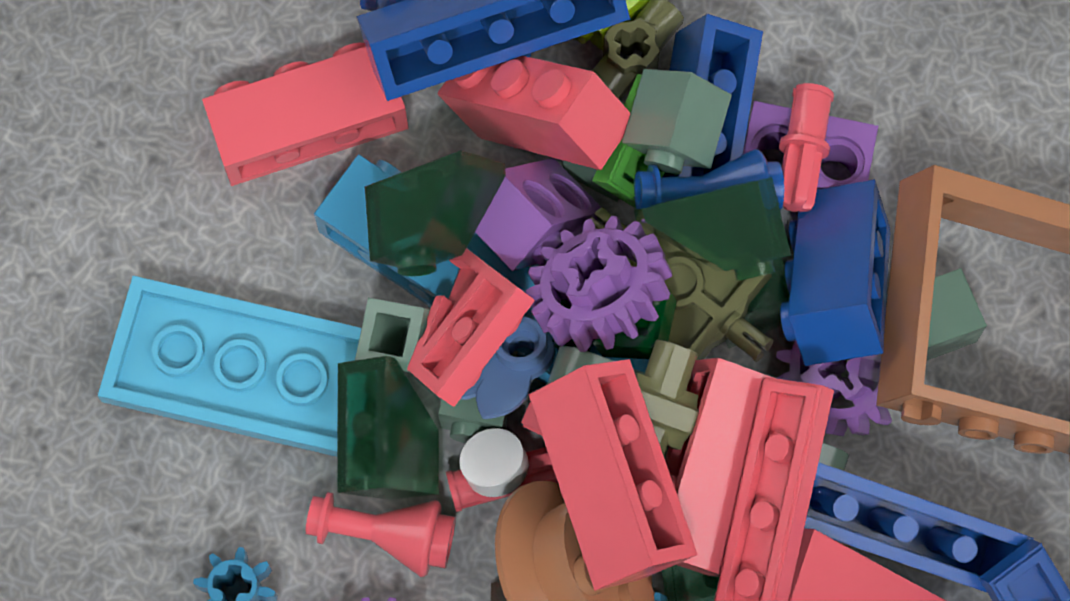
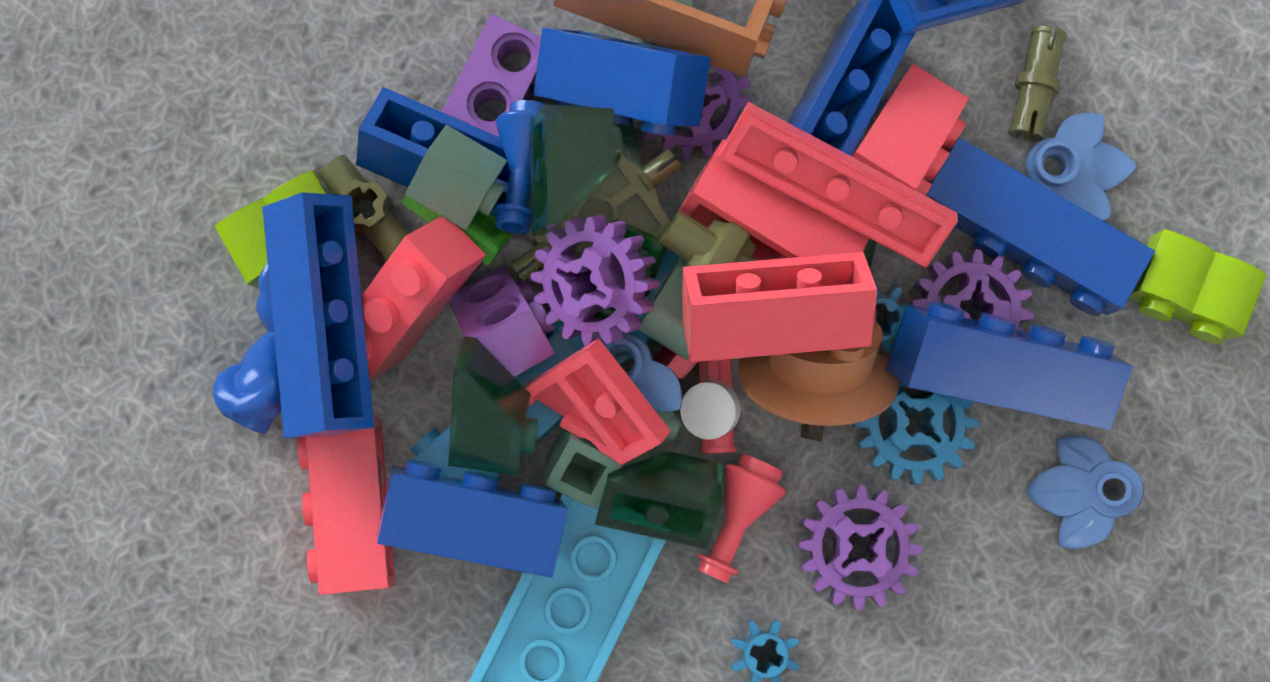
camera: 80 degrees left, 10 degrees up
(314, 228) = (472, 519): none -> blue brick
(805, 145) = (496, 76): coral axle -> none

